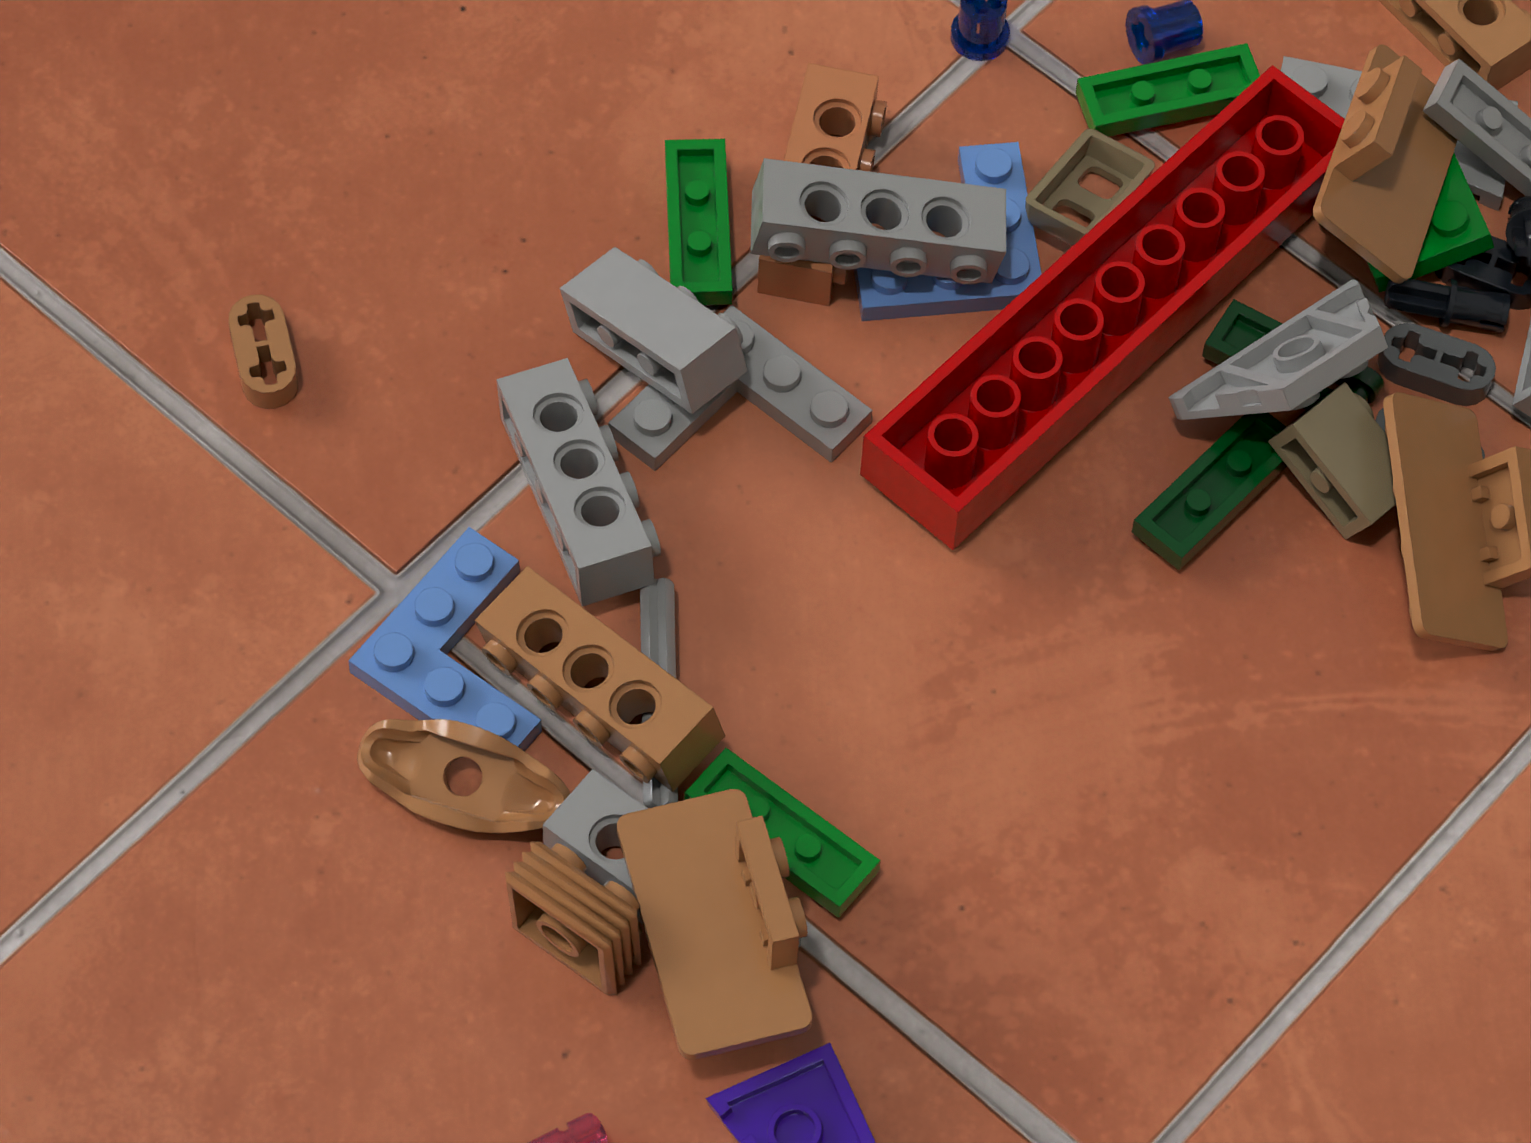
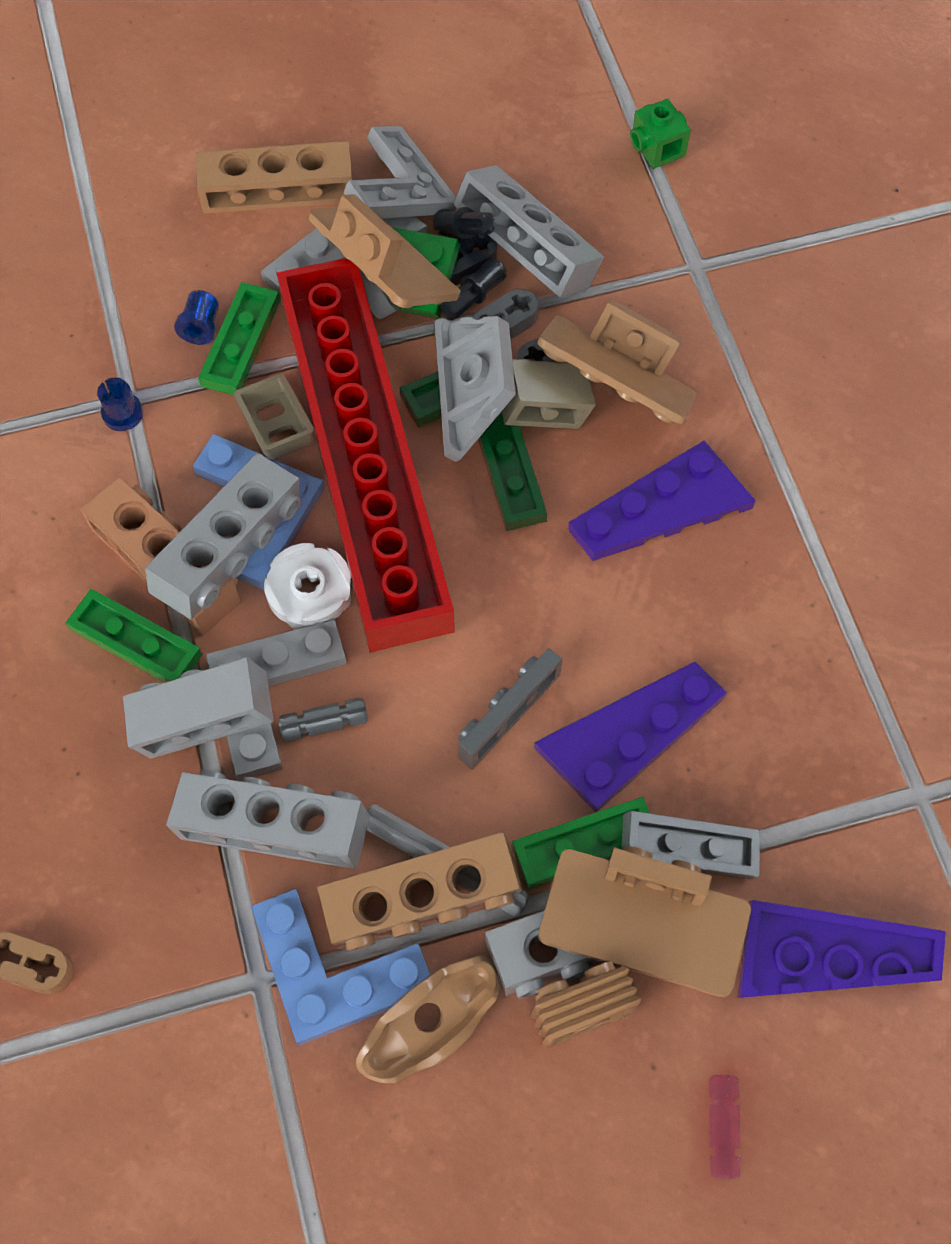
camera: 55 degrees left, 5 degrees up
(740, 473) = (323, 719): none -> dark grey axle
(853, 941) = (711, 846): none -> plate
(884, 330) = (316, 564): none -> white plate
(892, 657) = (508, 707): none -> dark grey plate
(952, 812) = (624, 738): none -> dark purple wing
(1332, 700) = (672, 497): none -> dark purple wing

